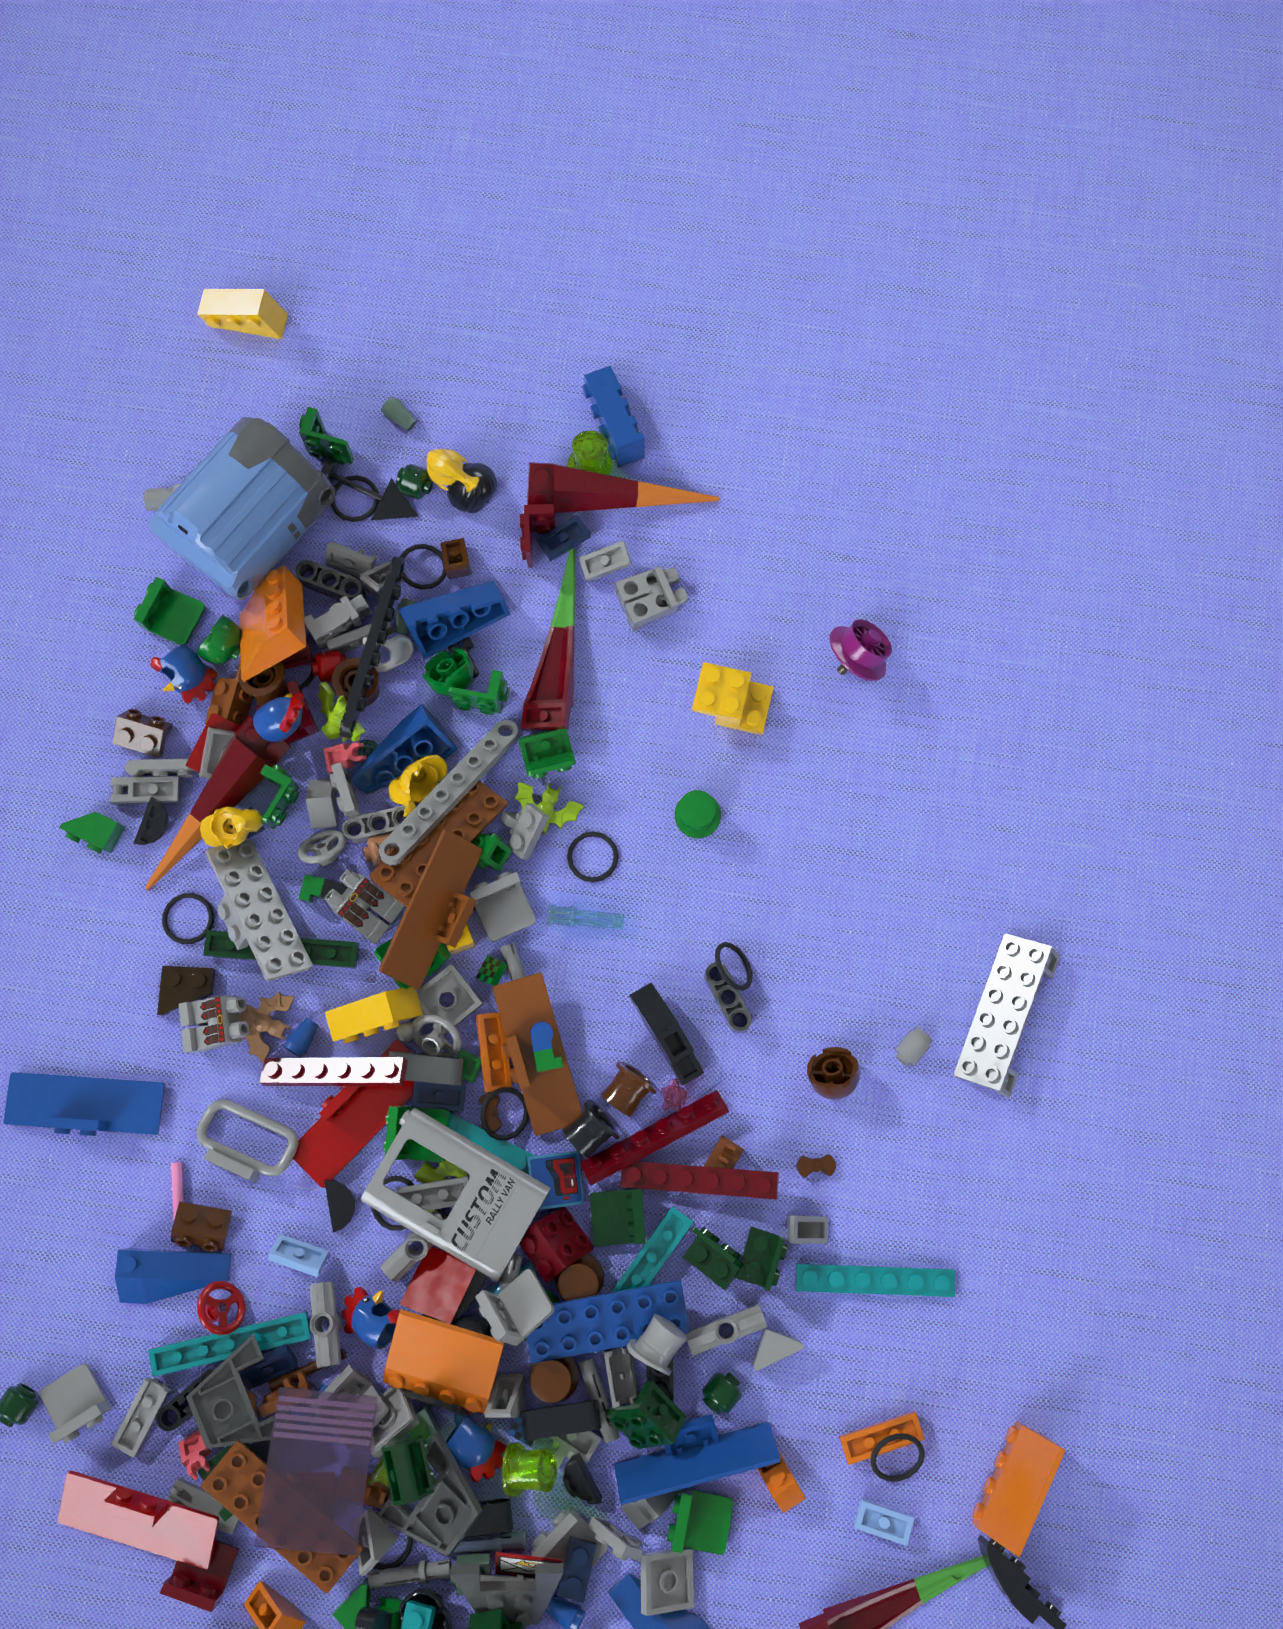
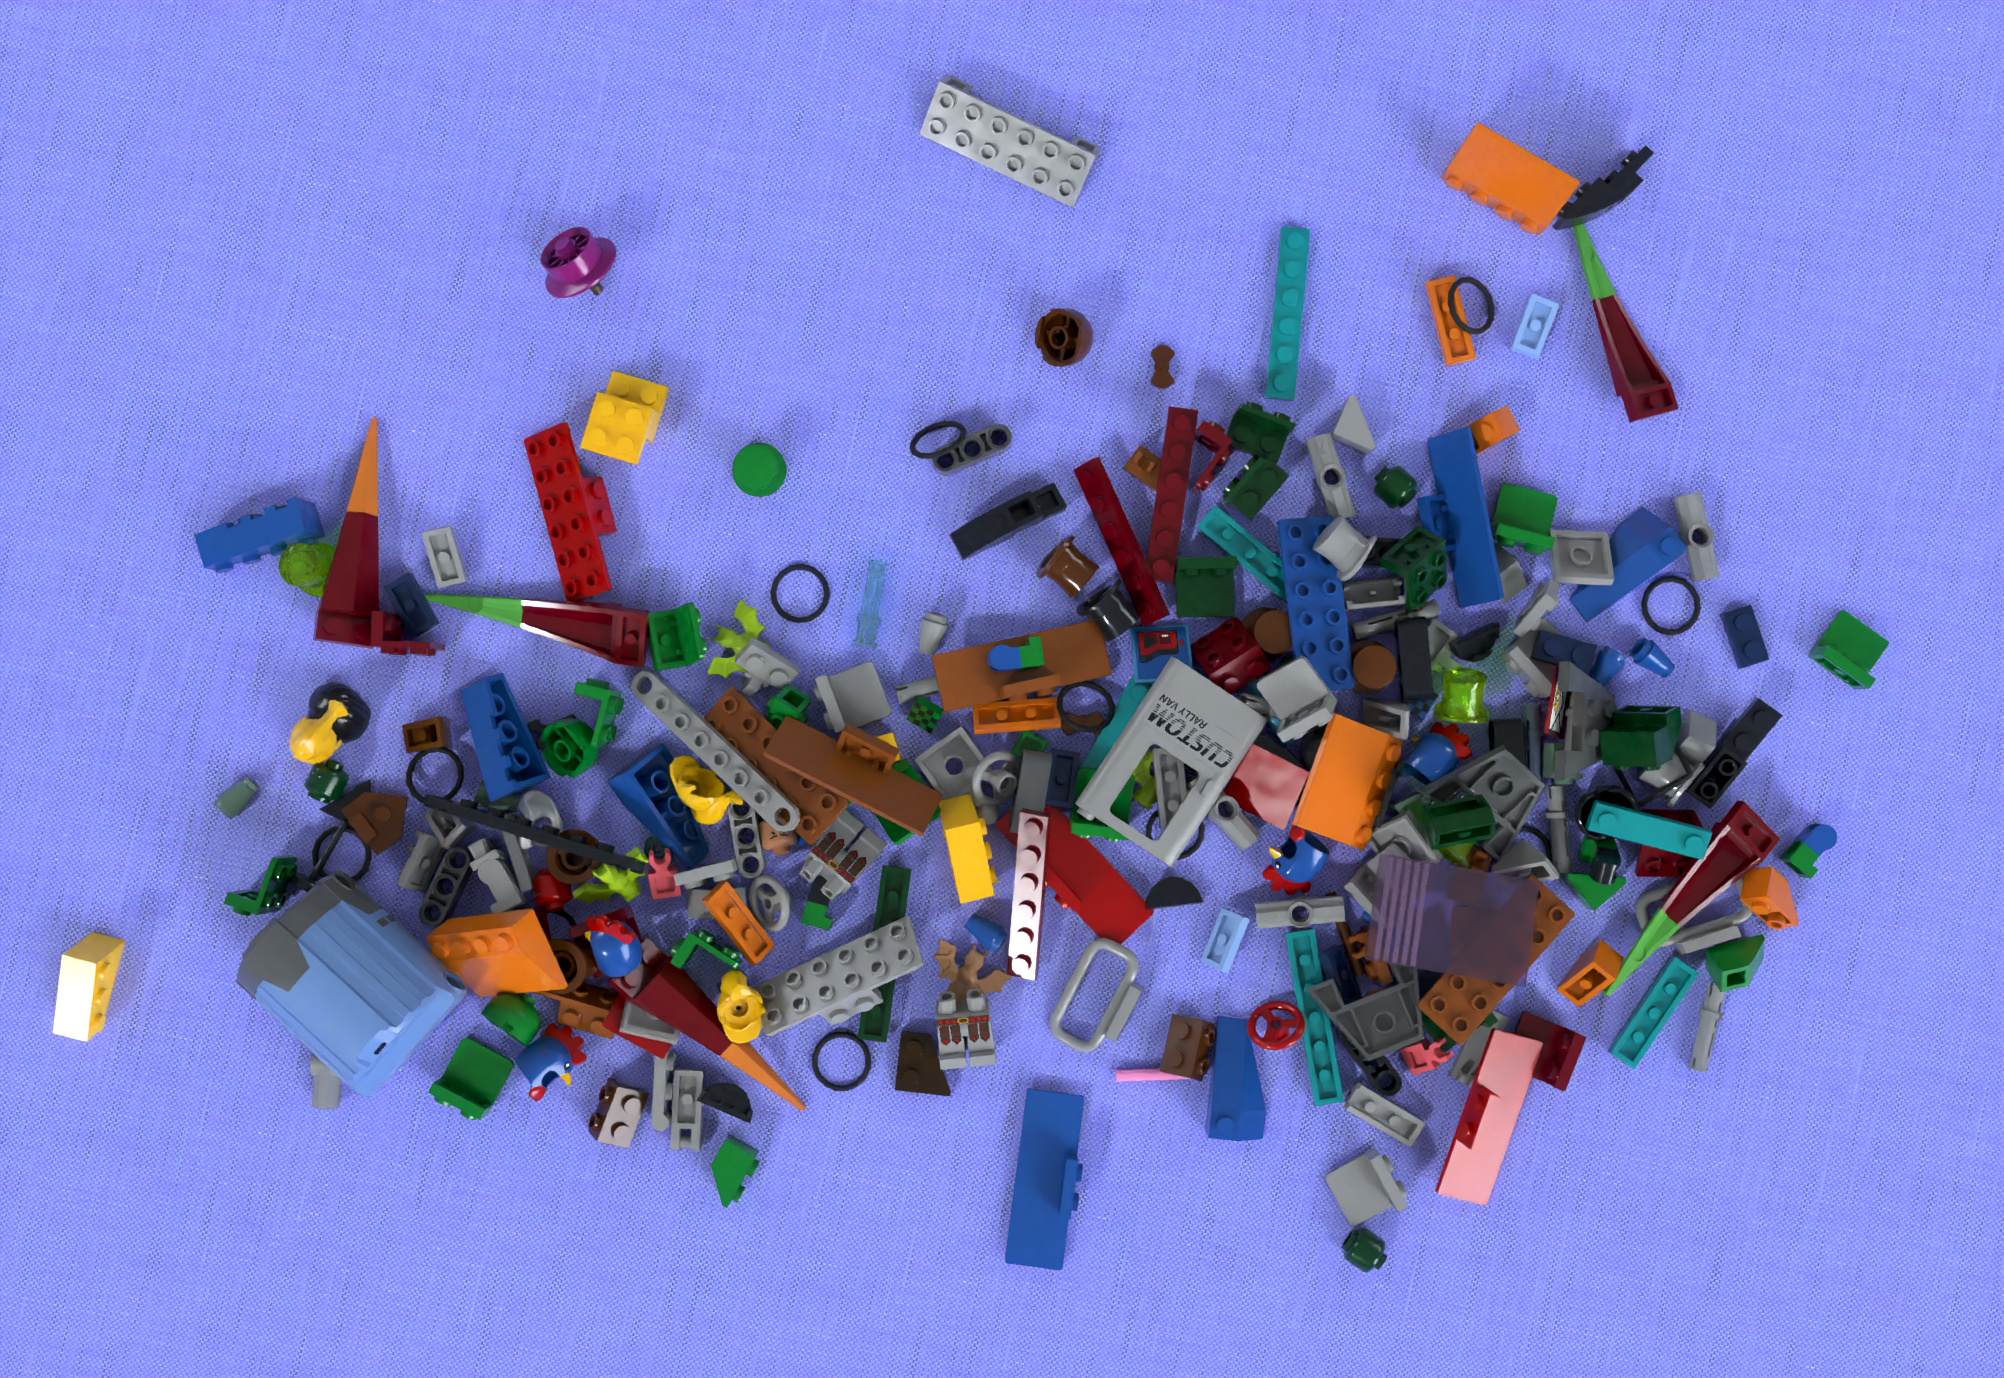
camera: 85 degrees left, 10 degrees up
(303, 821) = (738, 922): none -> orange plate
(384, 523) = (377, 819): none -> reddish brown plate
(564, 972) = (931, 632): none -> light grey cone
(650, 596) = (491, 507): light grey hips -> none
(650, 663) = (573, 510): none -> red bracket
(679, 1099) = (1077, 510): clear pink plate -> none
(754, 1214) = (1212, 438): none -> dark red bracket
(807, 1229) = (1230, 383): light grey slope -> none
(913, 1047) = (1040, 248): light grey brick -> none

